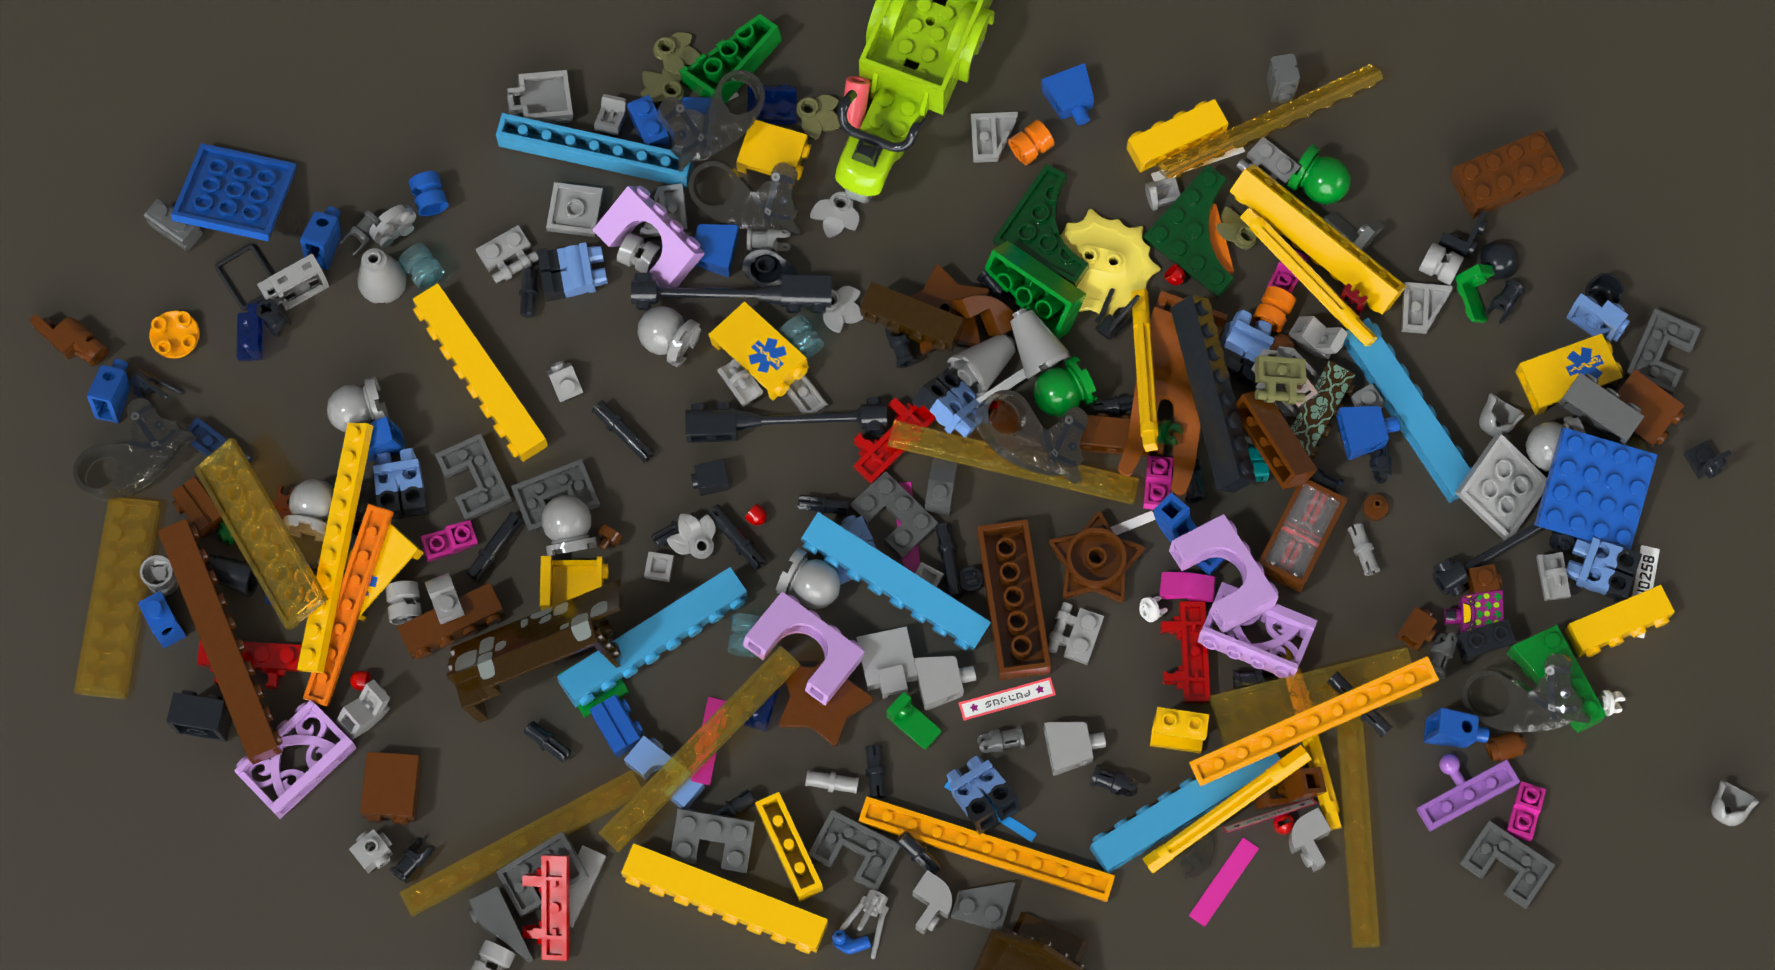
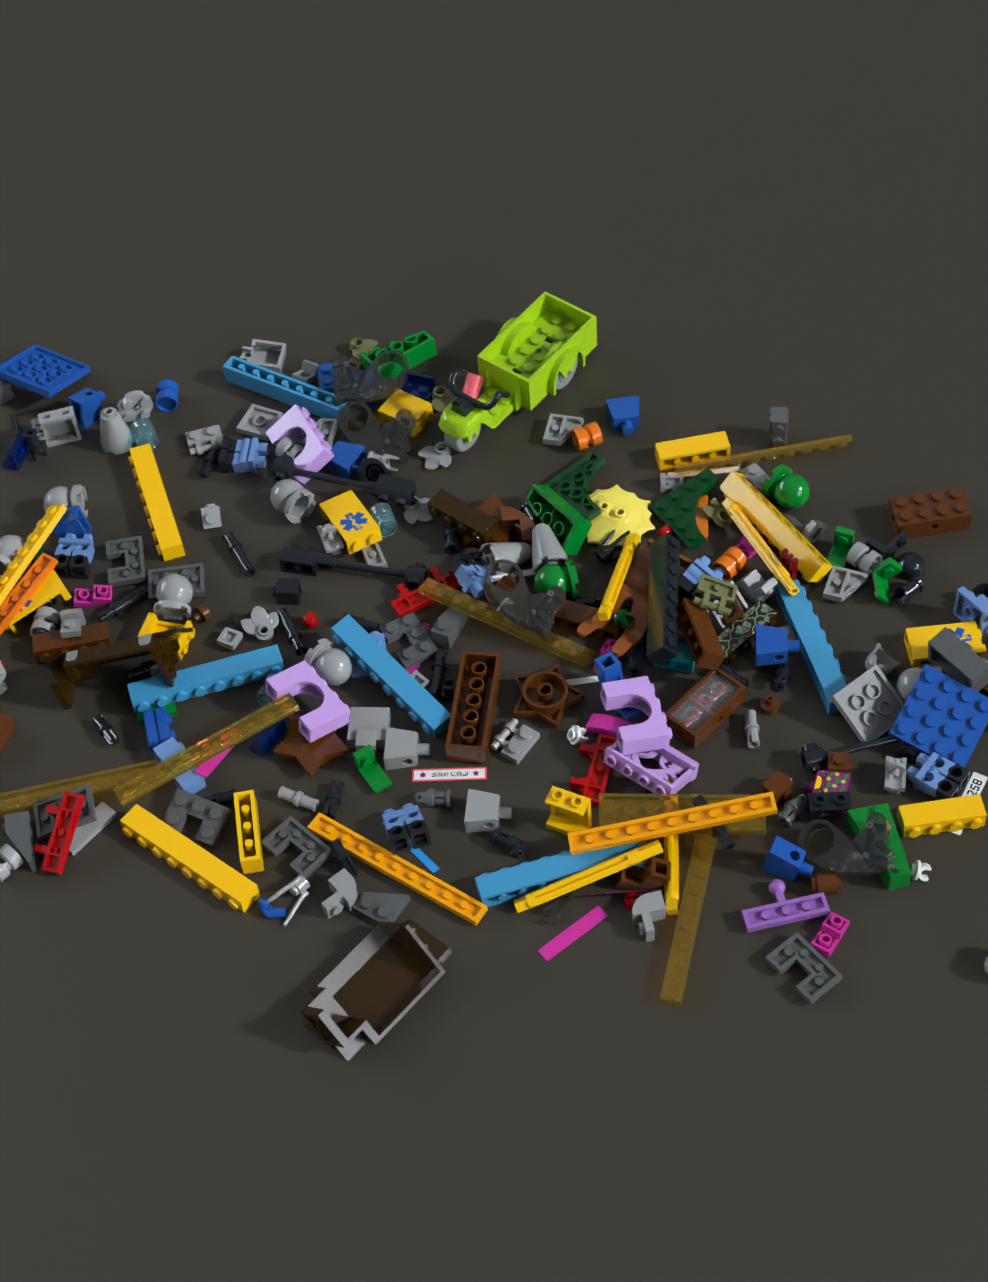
camera: 20 degrees right, 20 degrees down
(1407, 254) = (842, 544): none -> green bracket

